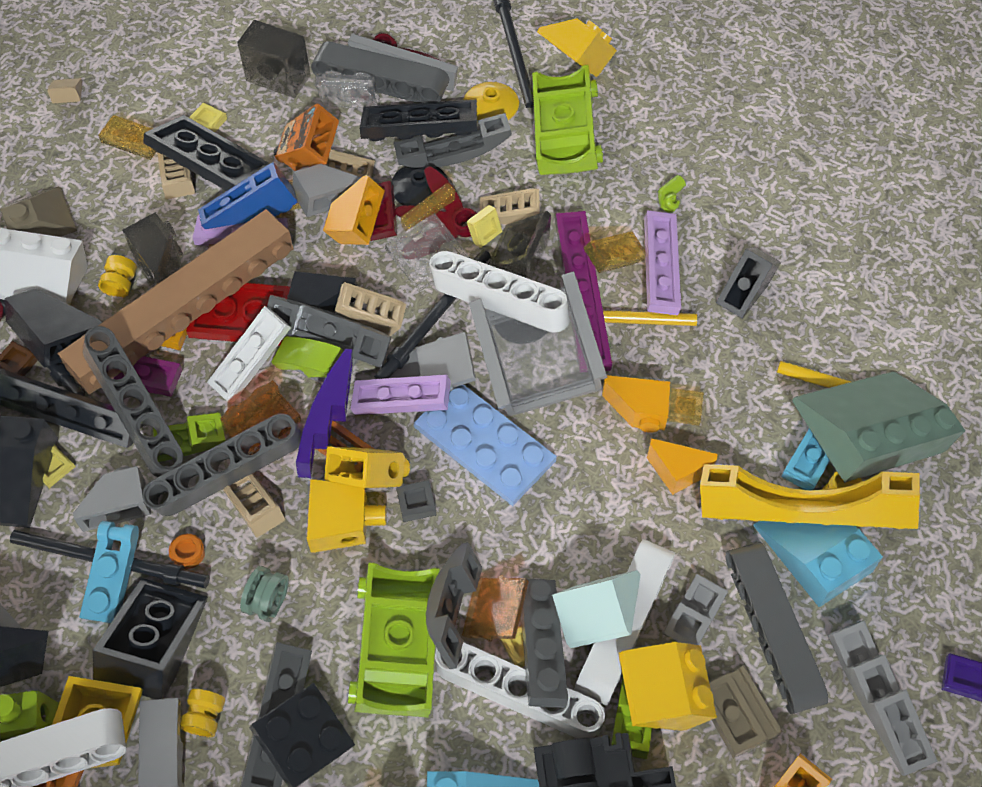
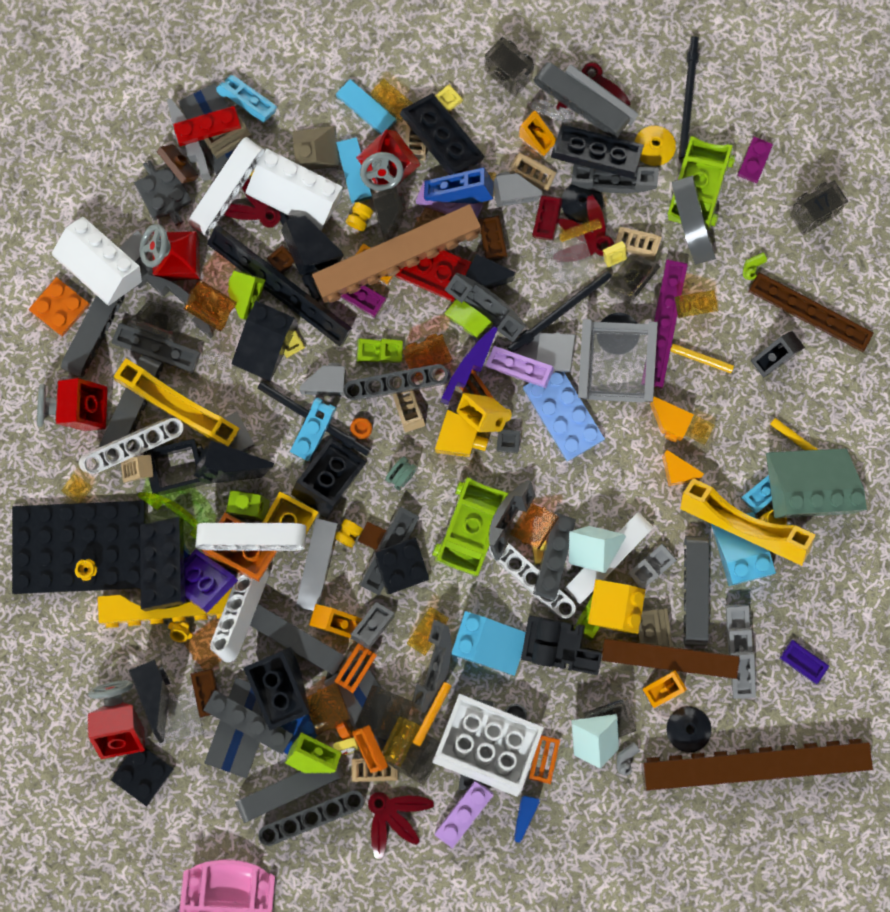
camera: 20 degrees right, 20 degrees up
(65, 90) = (354, 40): tan slope -> none
(97, 226) = (348, 152): none -> medium azure tile
(98, 155) = (366, 107): none -> medium azure tile
(131, 386) = (343, 317): dark grey beam -> none
(135, 191) = (386, 161): none -> piece
(241, 706) = (371, 536): none -> reddish brown tile
(248, 354) = (431, 307): white tile -> none
(307, 139) = (513, 148): orange torso -> none
(313, 252) = (492, 238): none -> reddish brown plate
(348, 128) = (537, 134): none -> light orange slope
(355, 213) = (529, 219): light orange slope -> none
(386, 305) = (531, 302): tan slope -> none
(500, 291) = (608, 324): white beam -> none
(574, 157) = (693, 220): none -> dark grey slope
(581, 42) = (733, 125): yellow slope -> none
(622, 84) = (755, 160): none -> magenta plate
(662, 263) = (725, 320): lavender plate -> none
(724, 102) = (818, 206): none -> clear smoke brick
(768, 225) = (811, 312): none -> reddish brown tile
(782, 740) = (670, 658): none -> reddish brown tile

